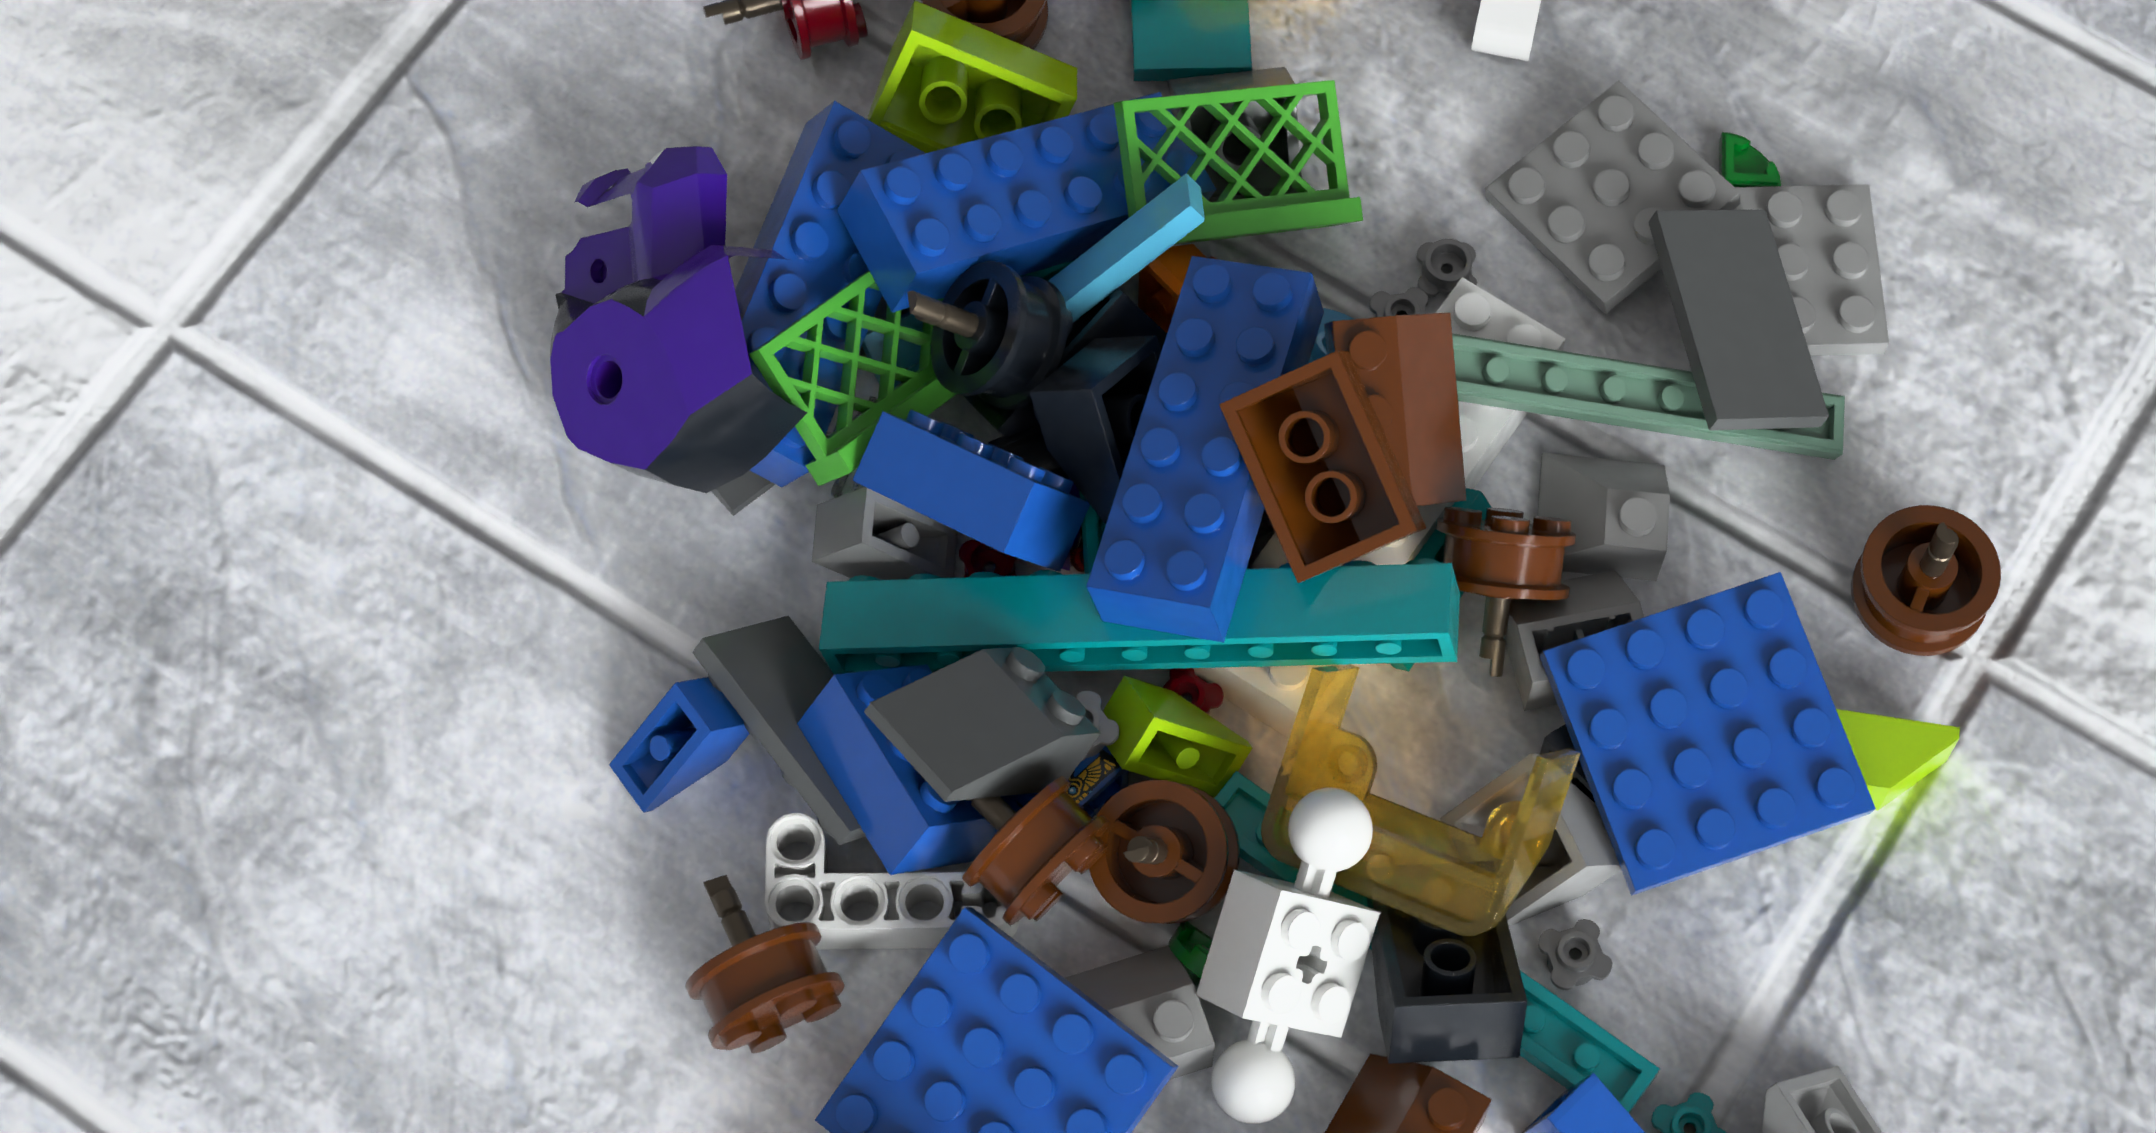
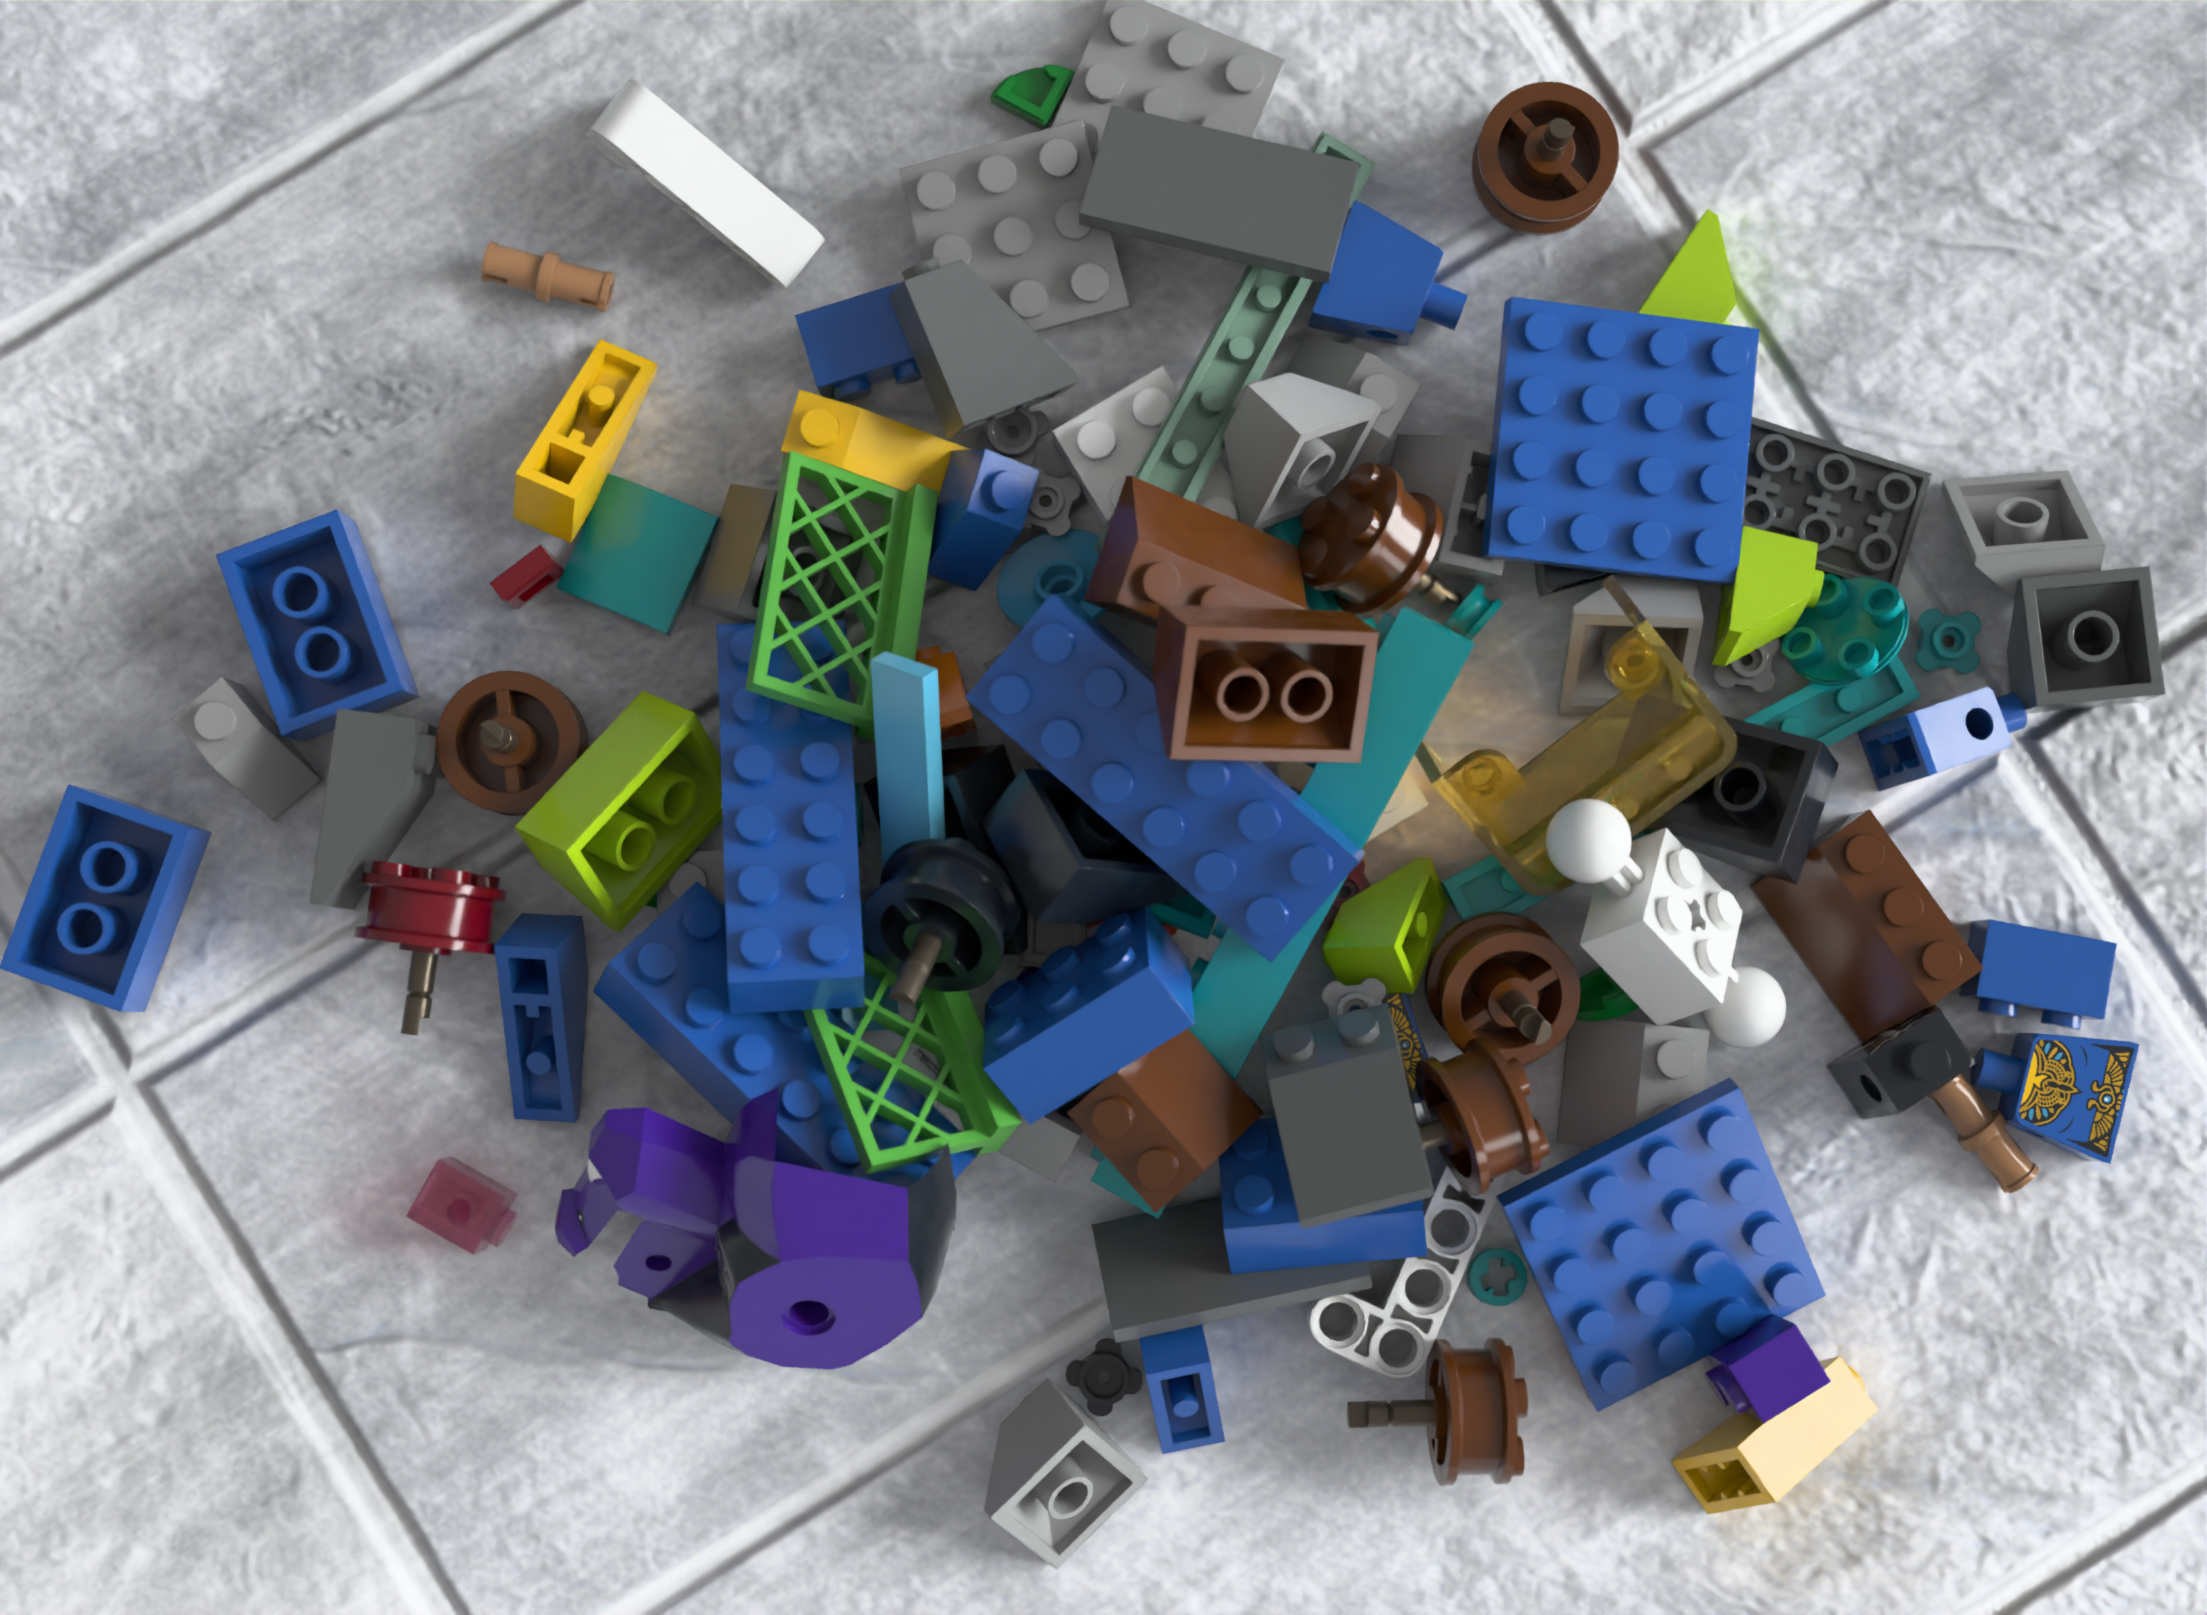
camera: 65 degrees left, 20 degrees up
(550, 675) = (1056, 1475): none -> light grey slope
(579, 122) = (464, 1206): none -> clear pink brick
(648, 668) = (1103, 1395): none -> black plate
(772, 107) = (544, 1013): none -> blue slope
(901, 962) = (1513, 1287): none -> teal bush
(912, 591) = (1166, 1117): none -> reddish brown slope
(1360, 260) = (978, 515): none -> blue slope
(1376, 172) = (867, 443): none -> yellow slope
(1463, 123) = (856, 345): none -> blue brick
(1489, 698) = (1473, 613): none -> teal bush
(1496, 188) = (973, 347): none -> dark grey slope
(1552, 459) = (1292, 444): none -> light grey slope
(1640, 930) = (1768, 593): none -> lime slope
(1648, 1021) = (1848, 632): none -> teal dish
(1739, 497) = (1383, 282): none -> blue torso
(1753, 960) = (1836, 496): none -> dark grey tile

